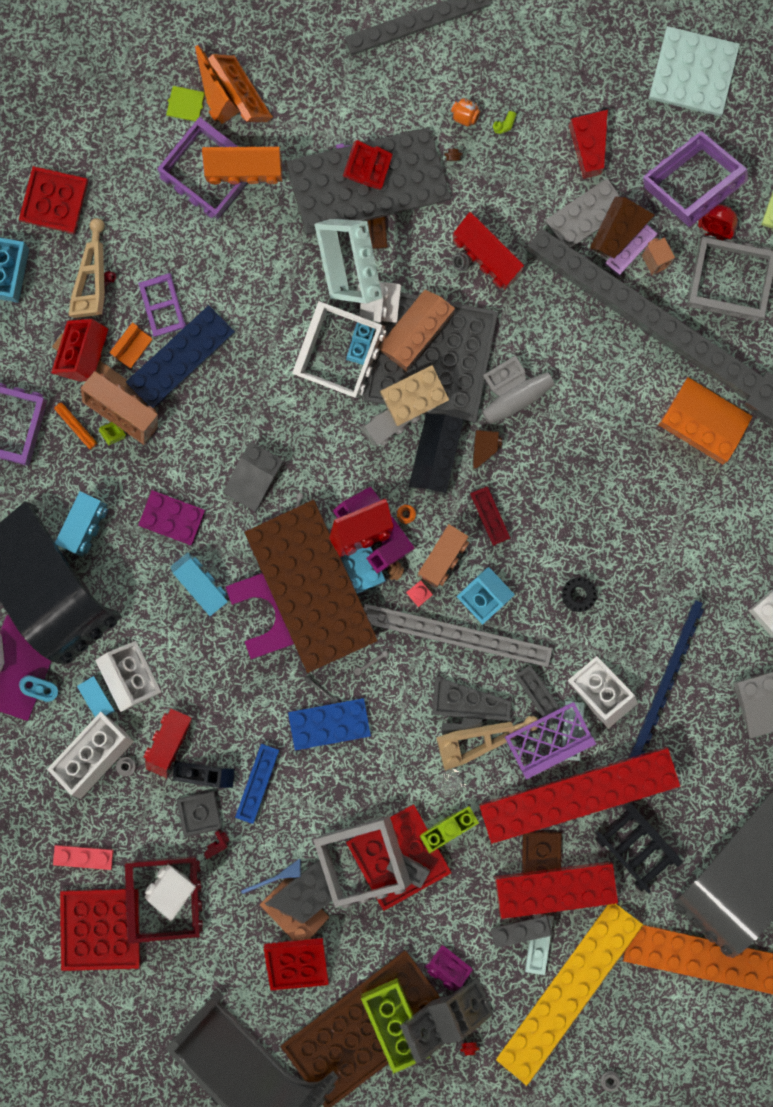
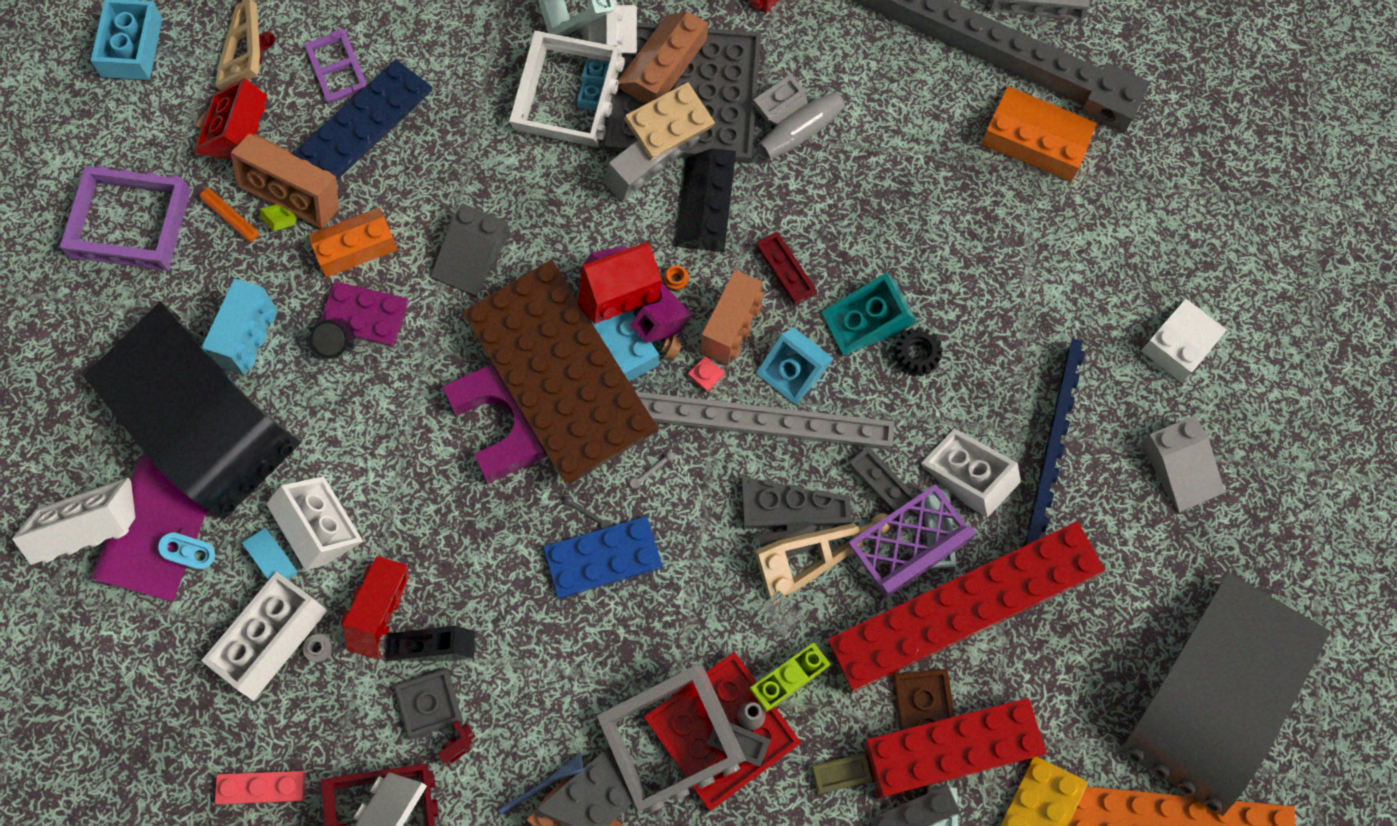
camera: 15 degrees left, 15 degrees down
(131, 345) = (297, 113): orange panel -> none
(147, 537) = (332, 338): none -> piece
(166, 458) = (352, 242): none -> orange slope
(199, 583) = (407, 388): medium azure wedge -> none
(257, 783) = (508, 650): blue plate -> none
(418, 846) = (747, 721): none -> light grey cone
(476, 895) = (841, 773): none -> olive tile
(485, 447) = (768, 186): reddish brown slope -> none
(547, 561) = (869, 315): none -> teal slope
(655, 844) = (1083, 666): black fence -> none

